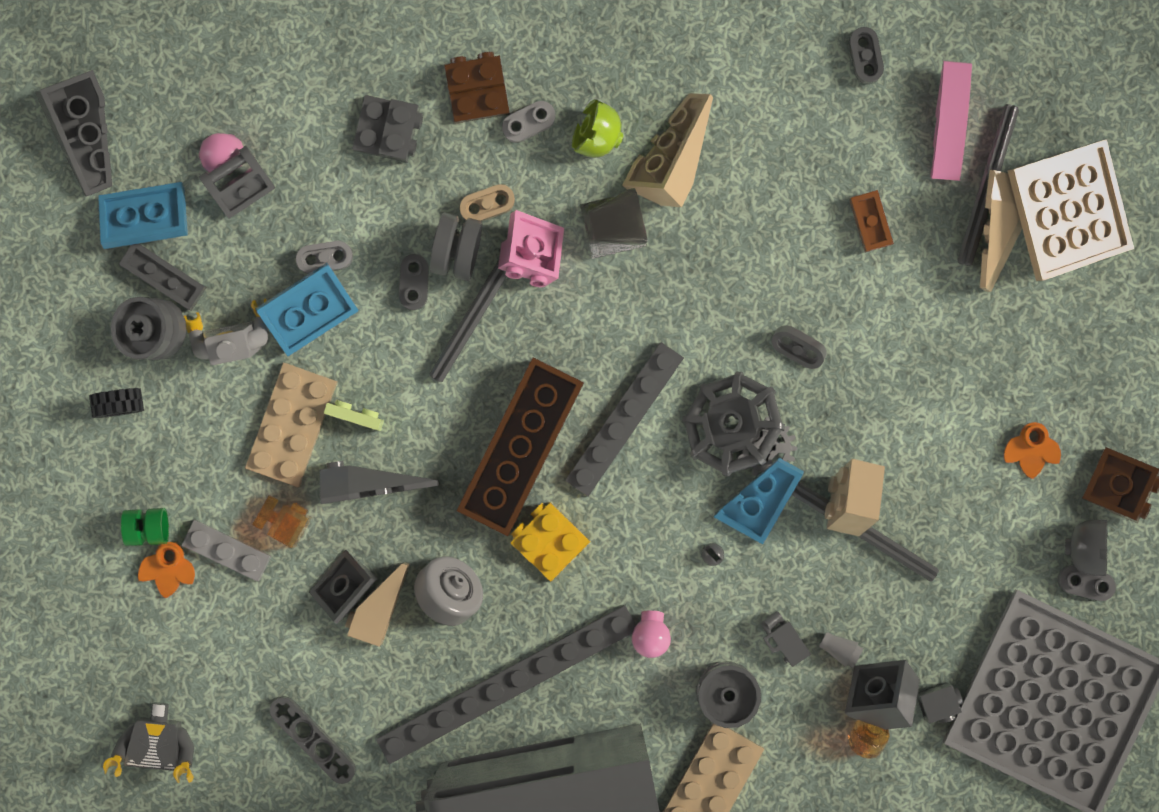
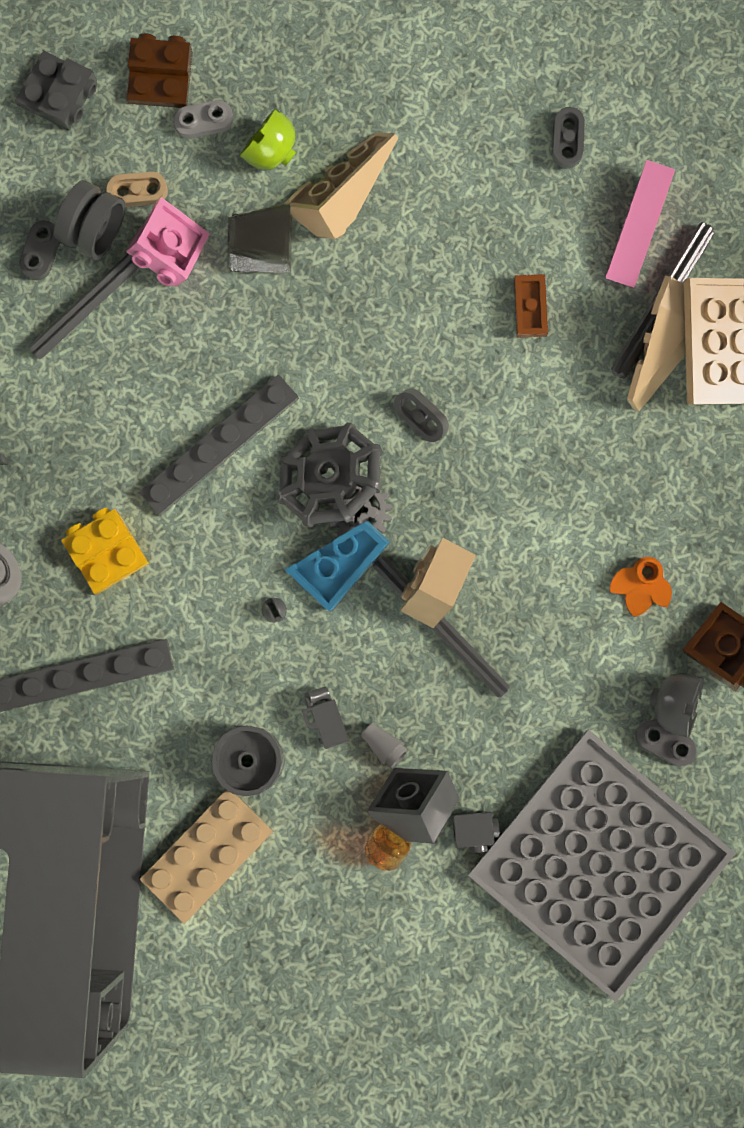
camera: 15 degrees right, 5 degrees down
(520, 446) = (100, 442): reddish brown brick -> none
(651, 635) = (184, 677): bright pink piece -> none

